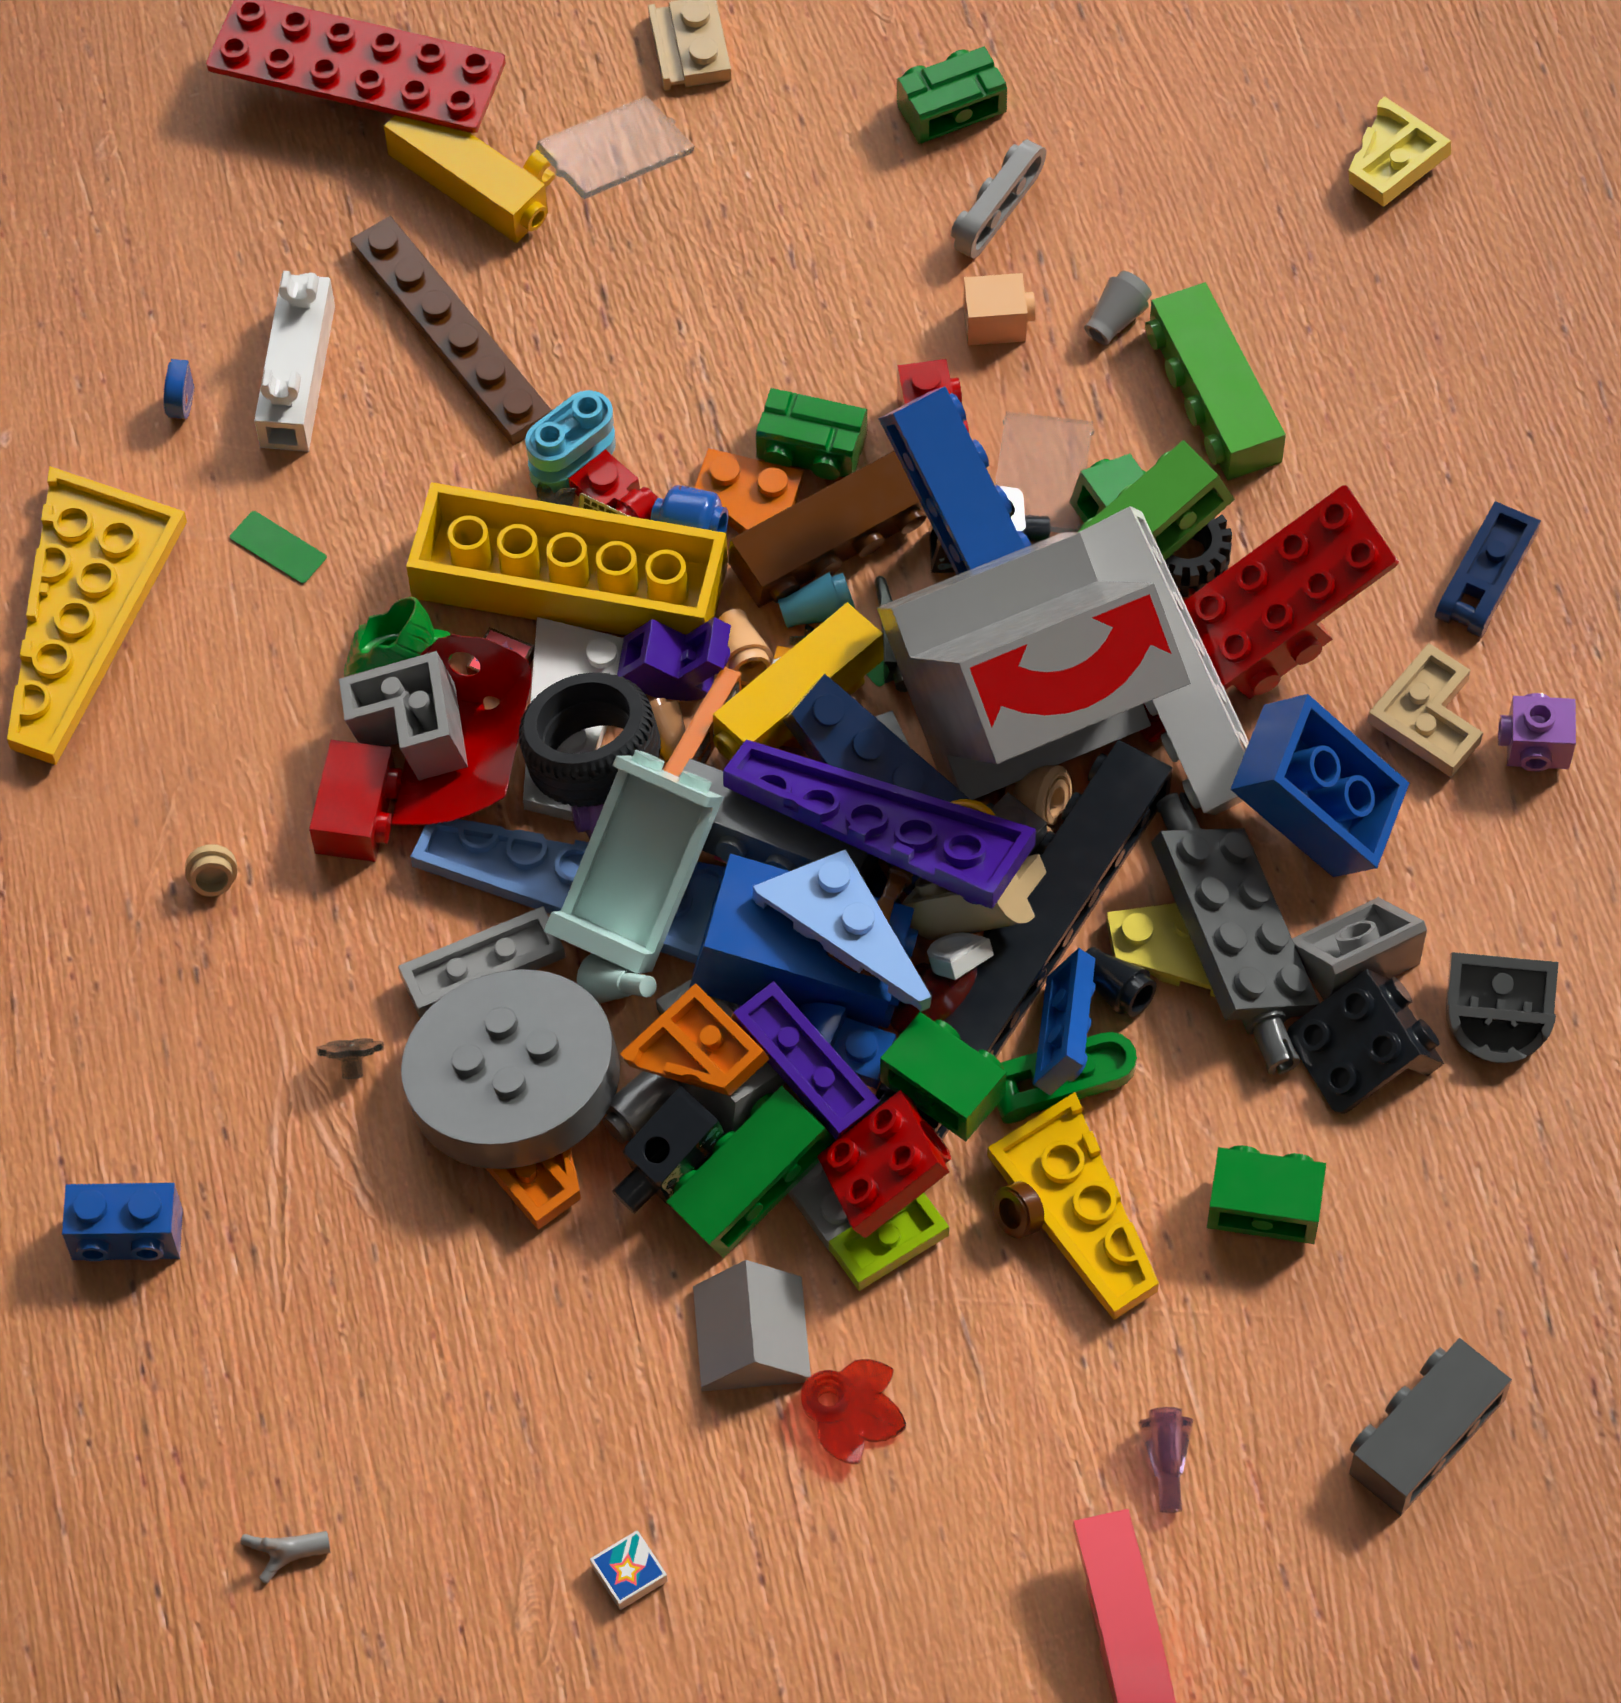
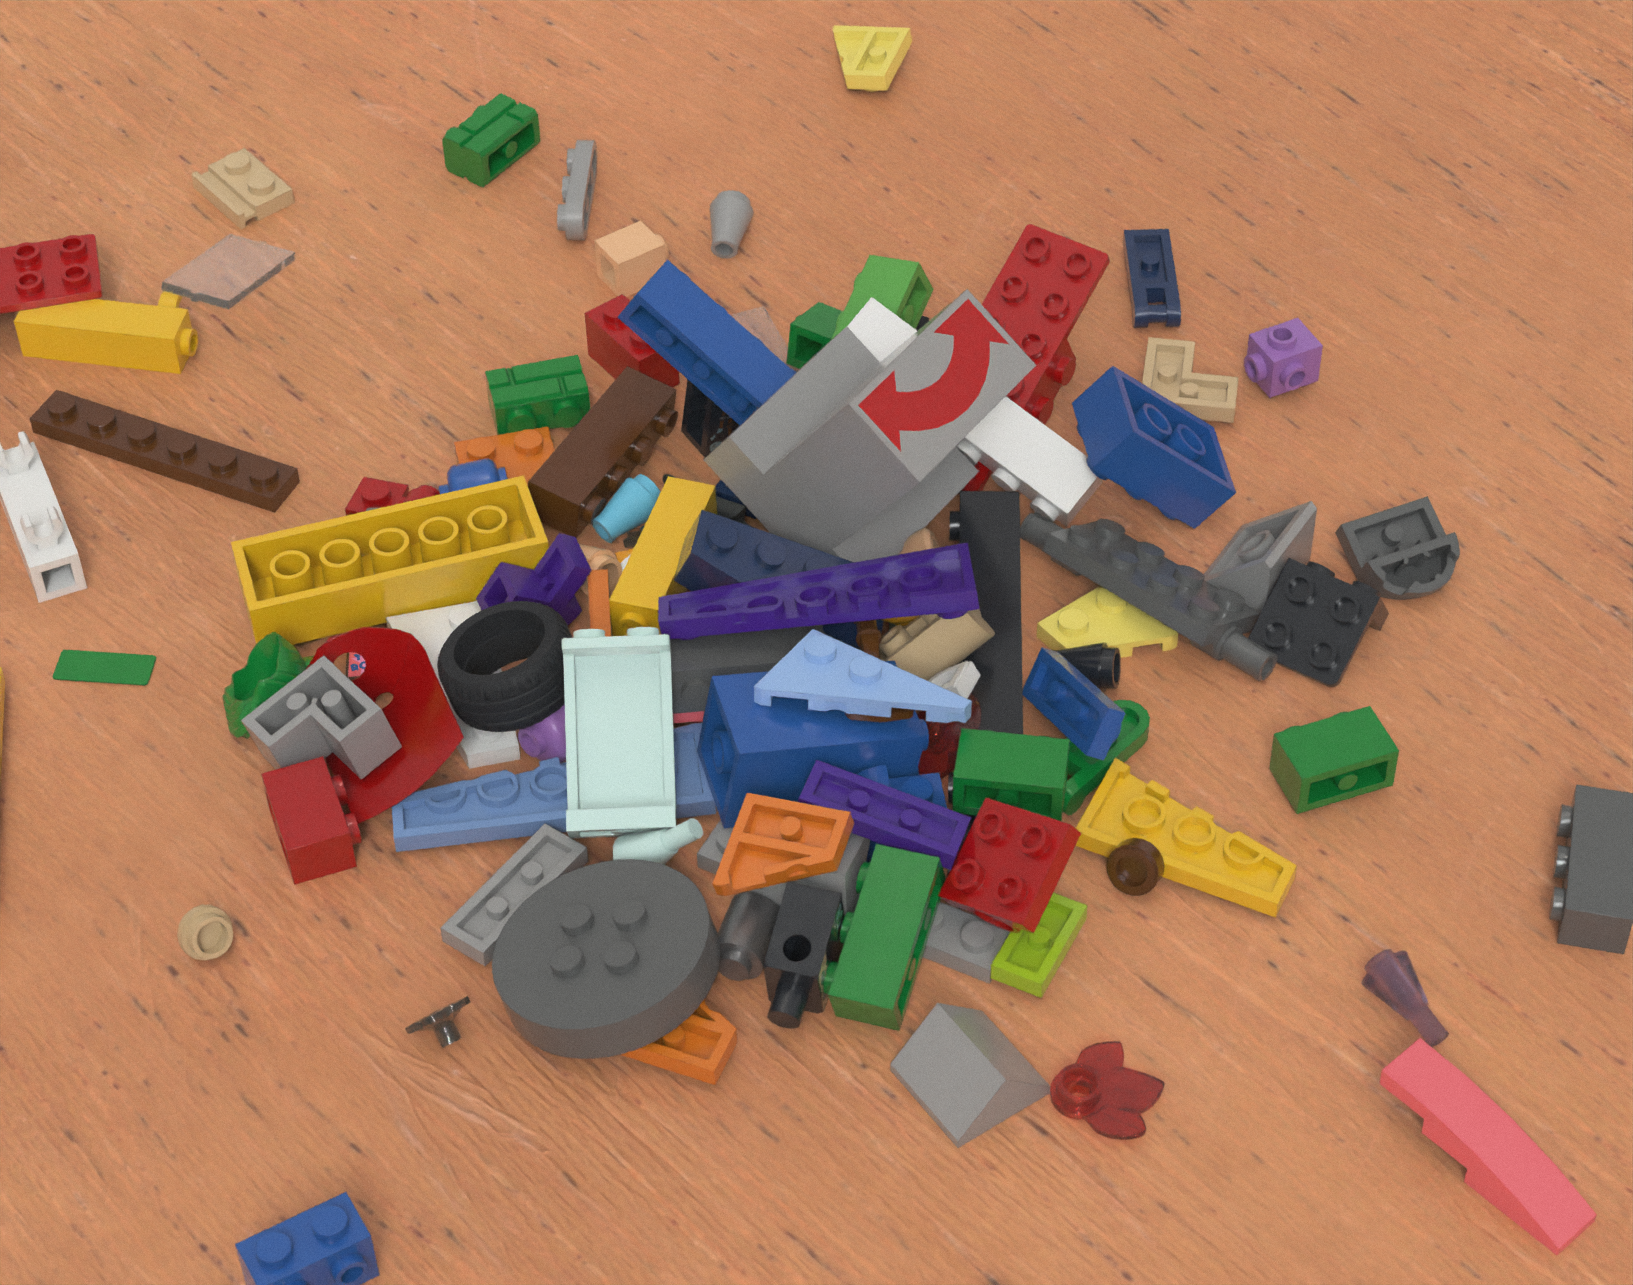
camera: 30 degrees left, 15 degrees down
(569, 438) = (329, 474): medium azure brick -> none
(1215, 381) = (835, 230): bright green brick -> none

